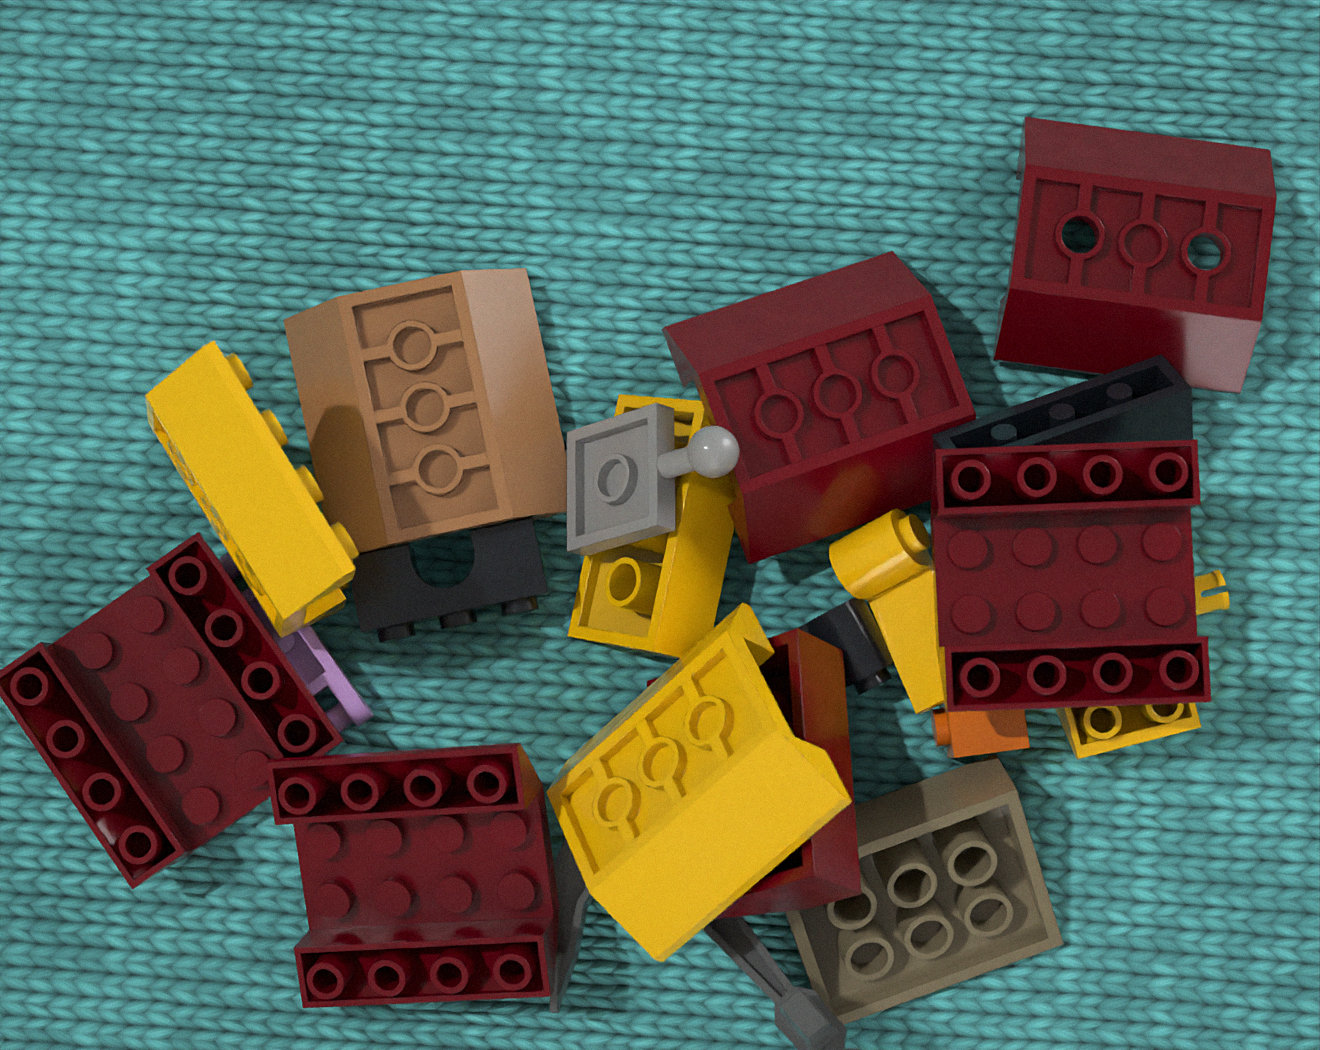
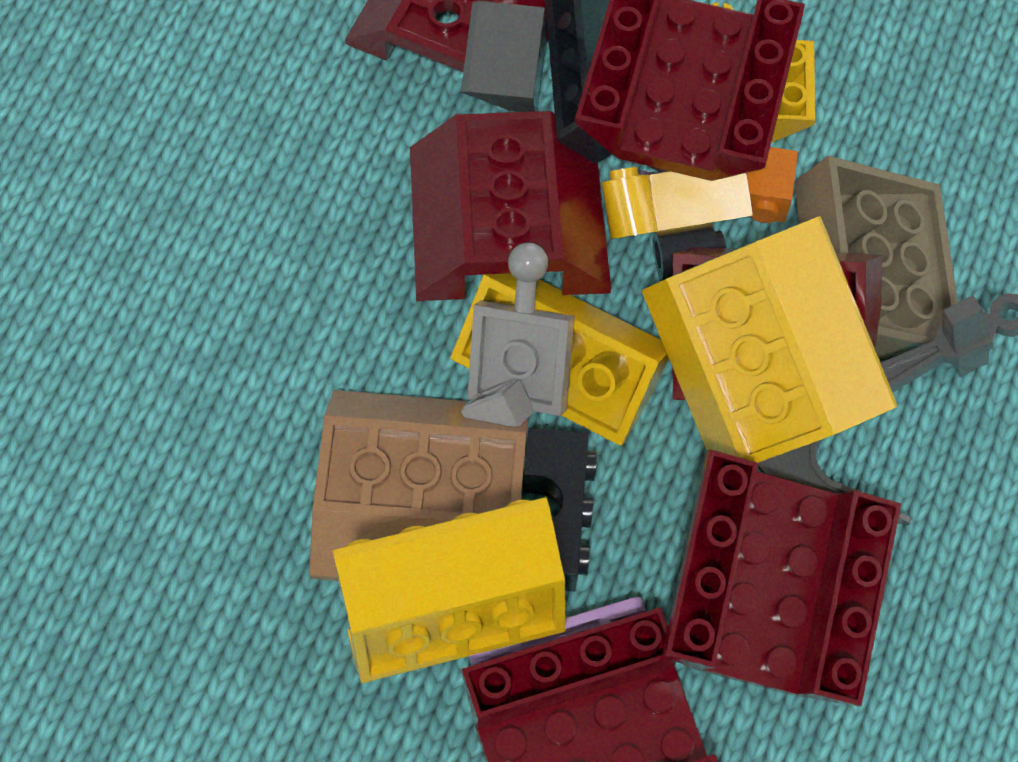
camera: 75 degrees left, 20 degrees down
(551, 475) = (501, 405): none -> light grey slope
(1041, 331) = (505, 54): none -> dark grey slope

